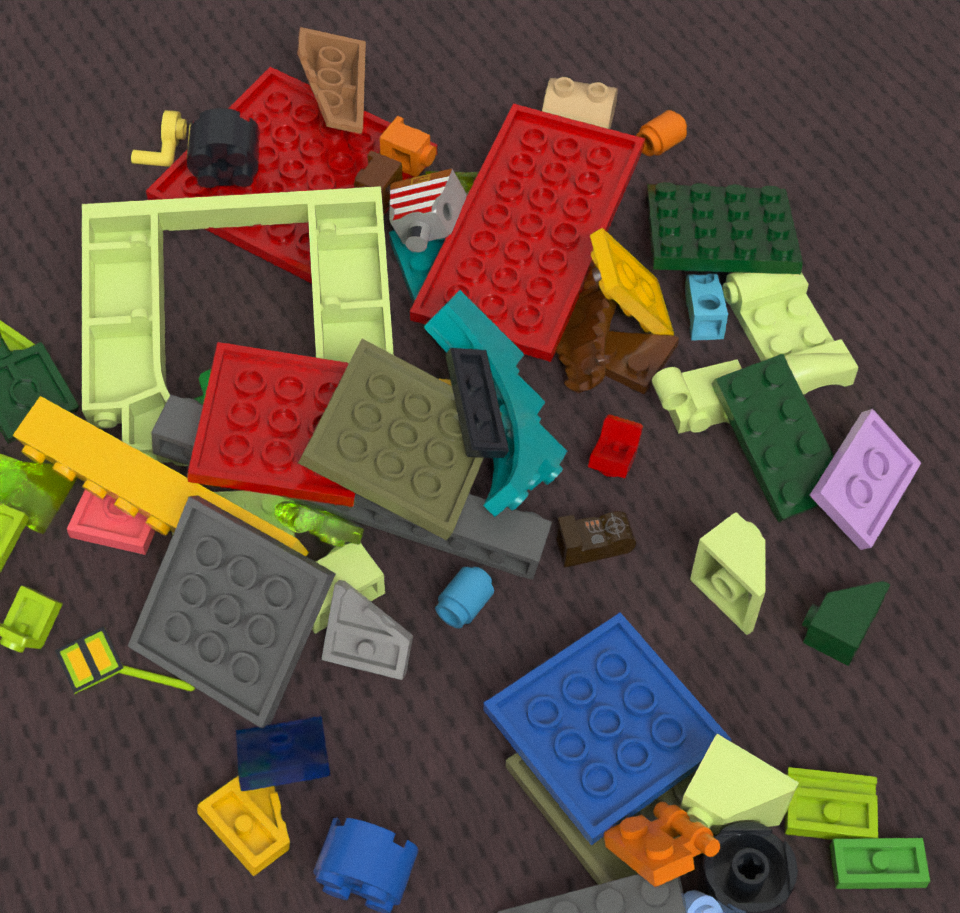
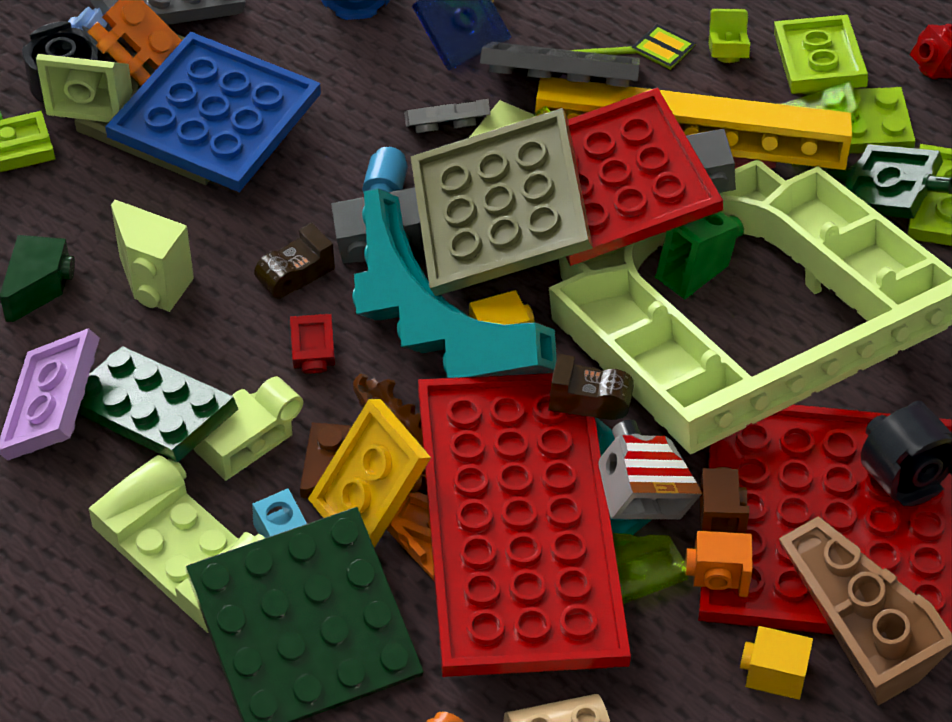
camera: 155 degrees right, 5 degrees down
(406, 98) = (777, 662): none -> yellow brick
(425, 276) = (589, 390): none -> dark brown leg
(476, 403) = (455, 267): black tile -> none

